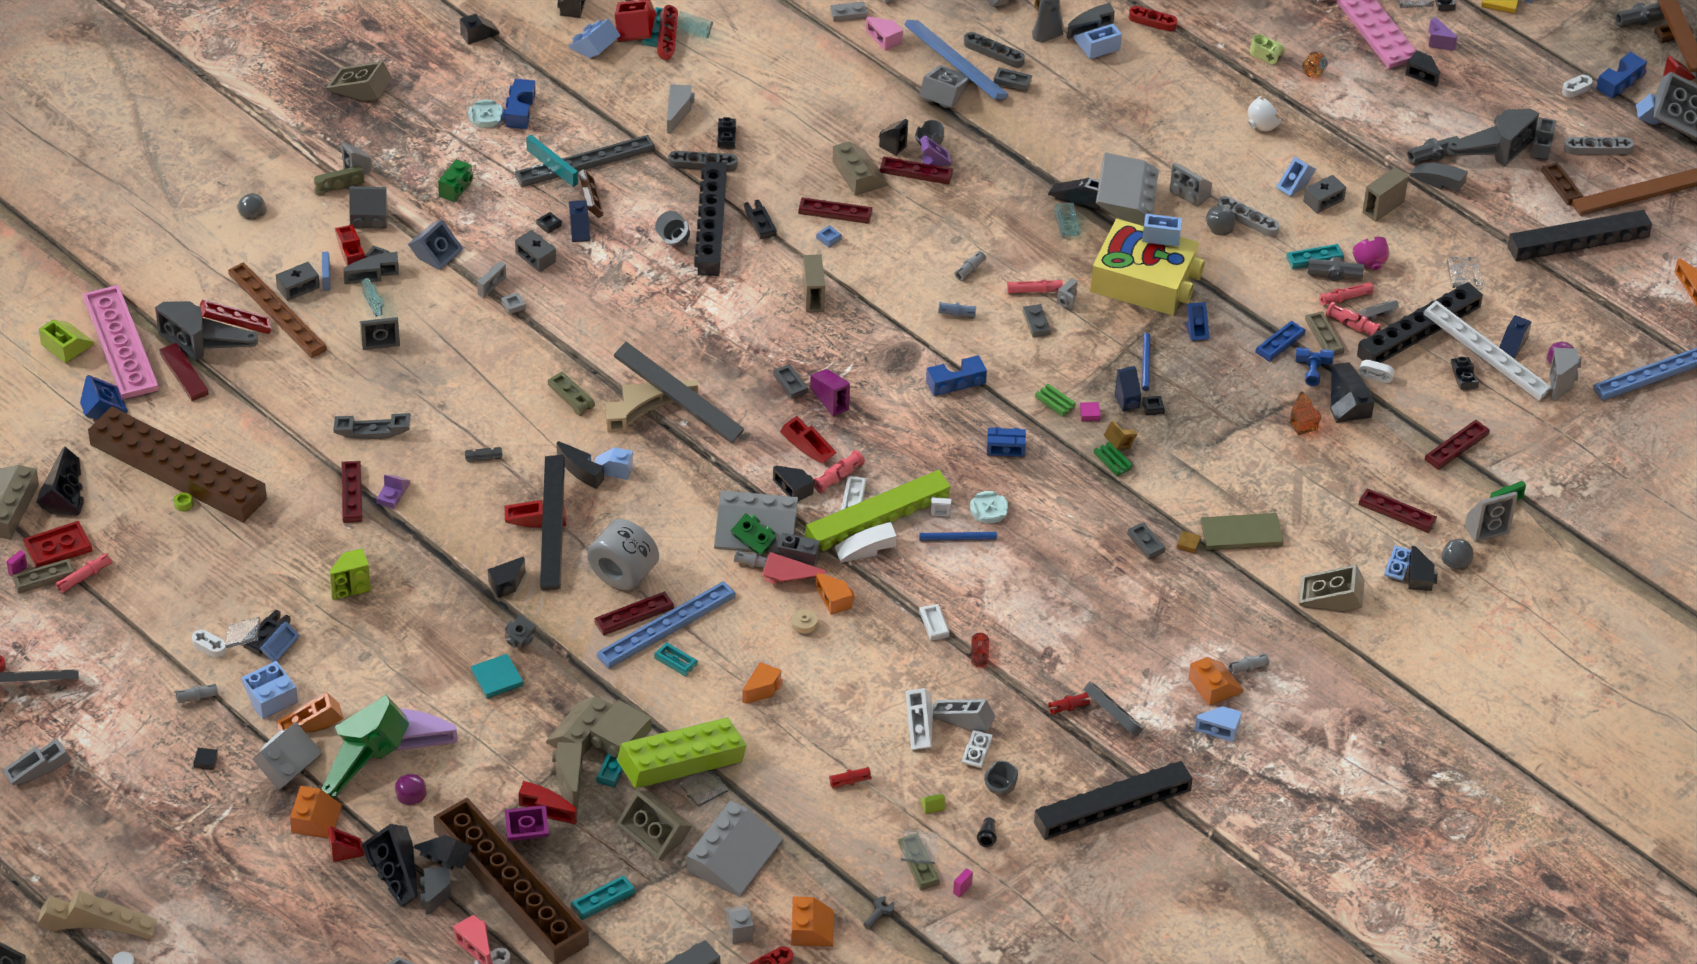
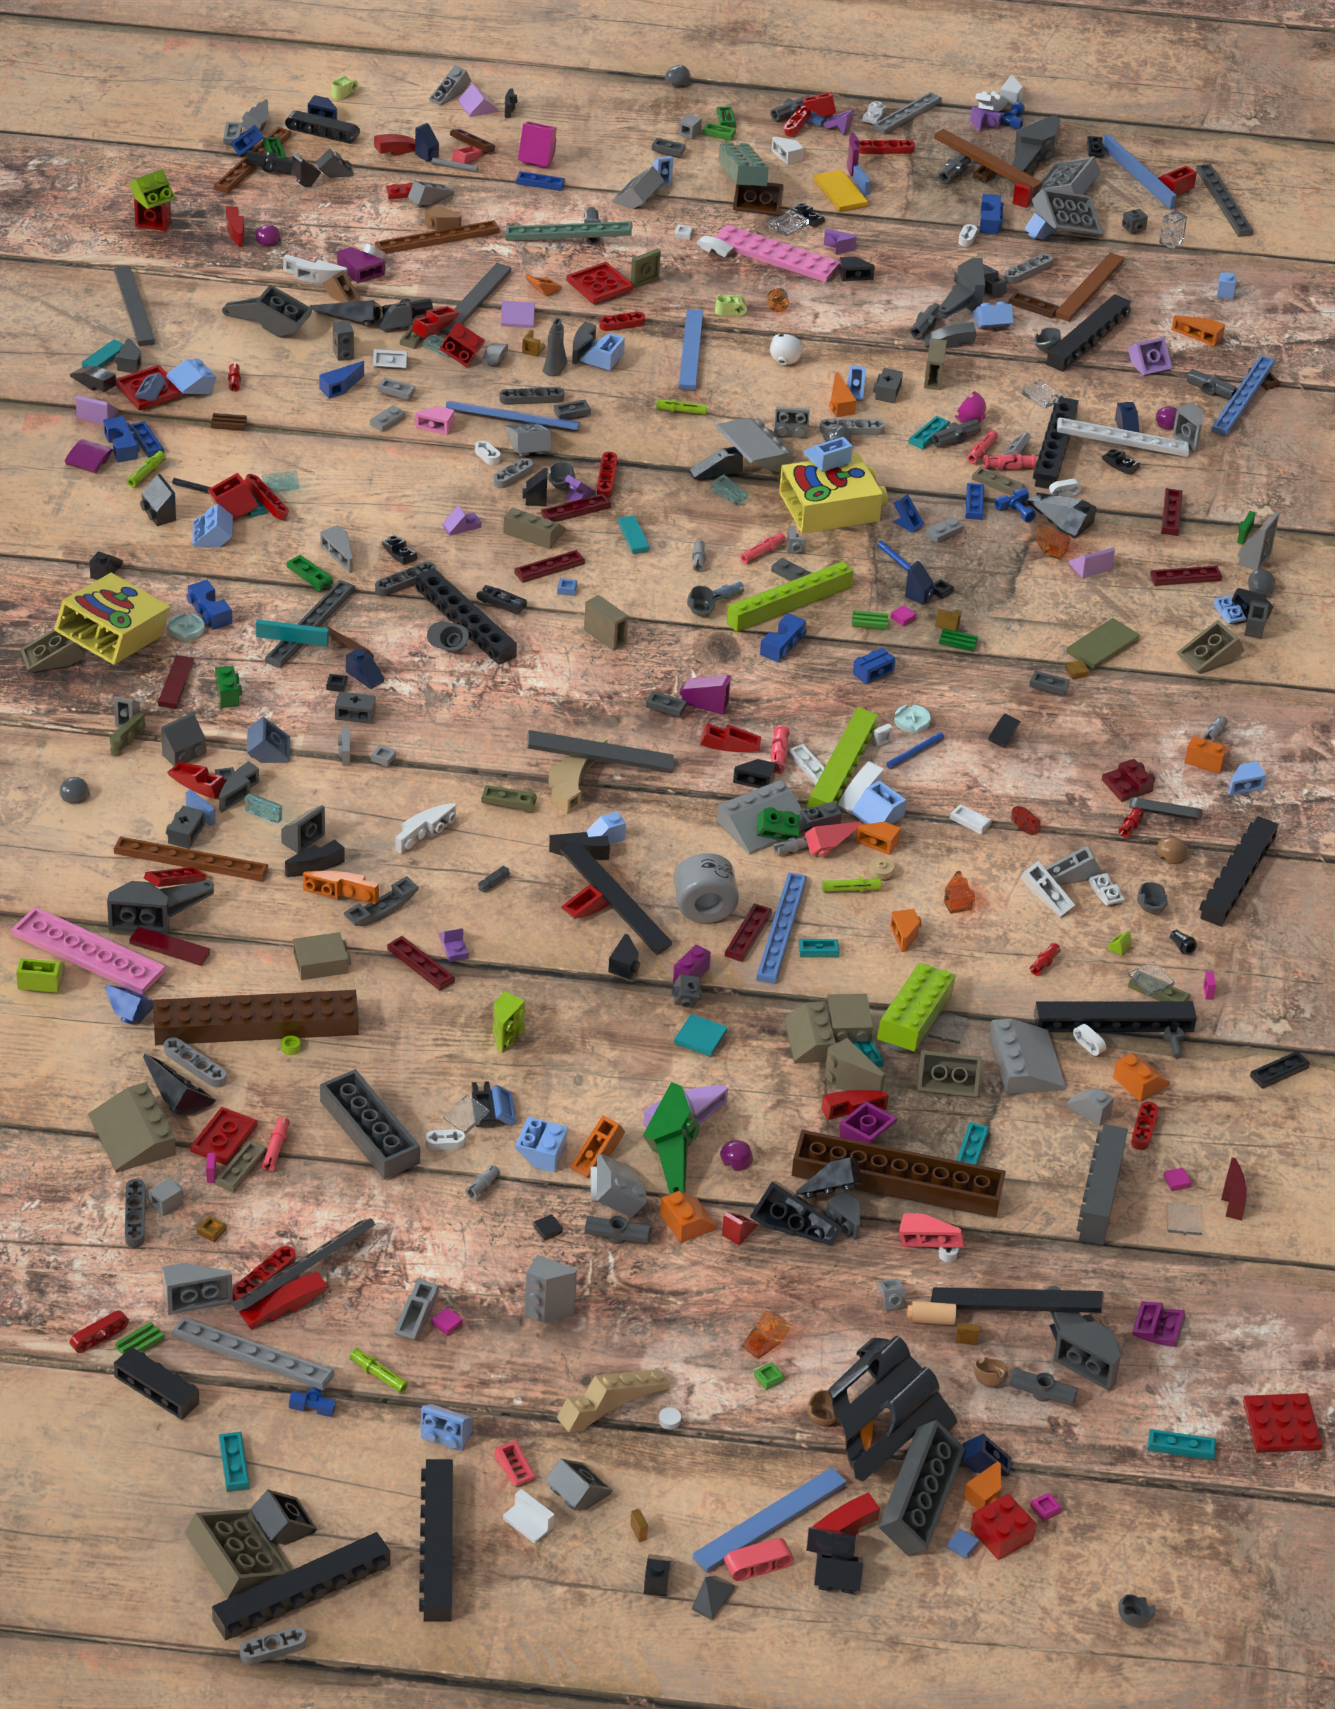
camera: 40 degrees left, 5 degrees down
(51, 785) = (447, 1321): none -> dark pink tile
(100, 475) = (207, 1075): none -> light grey beam
(129, 804) = (549, 1290): none -> light grey slope
(161, 597) = (370, 1124): none -> dark grey brick
(249, 791) = (617, 1229): none -> dark grey piece
(264, 943) = (766, 1334): none -> clear orange slope
(280, 442) = (321, 955): none -> dark tan brick
(355, 391) = (338, 884): none -> orange slope
(363, 361) = (315, 859): none -> black slope
(416, 76) = (112, 618): none -> light yellow brick
(426, 156) = (176, 681): none -> dark red tile
(480, 377) = (425, 823): none -> white slope
(549, 614) = (694, 963): none -> magenta brick
(630, 116) = (310, 572): none -> green plate
(769, 624) = (851, 885): none -> lime pin
(802, 135) = (460, 522): none -> medium lavender slope
(804, 856) = (1089, 1039): none -> white beam
(840, 679) = (958, 894): none -> clear orange slope
(849, 860) = (1115, 1015): none -> black brick
(860, 567) = (879, 804): none -> light blue slope
(882, 114) = (504, 477): none -> light grey beam
(893, 83) = (487, 452): none -> white beam
(919, 306) = (701, 600): none -> dark grey hair
(938, 218) = (633, 534): none -> teal tile
(979, 155) = (607, 474): none -> red beam
(1004, 342) = (789, 596): none -> lime brick
(1053, 559) = (1004, 730): none -> black slope
(1077, 748) = (1171, 849): none -> medium nougat hair
(1107, 119) = (681, 406): none -> lime pin
(1113, 666) = (1129, 780): none -> dark red plate
(1185, 74) = (690, 349): none -> medium blue tile
(1221, 353) = (944, 529): none -> light grey plate
(1265, 183) = (842, 400): none -> orange slope
(1319, 454) = (1093, 563): none -> lavender slope
(1402, 582) = (1256, 619): none -> dark grey slope
(1504, 176) = (993, 315): none -> light blue slope
(1527, 221) = (1047, 339): none -> dark grey hair
(1612, 287) = (1150, 356): none -> lavender slope
(1642, 342) = (1211, 384): none -> dark grey piece

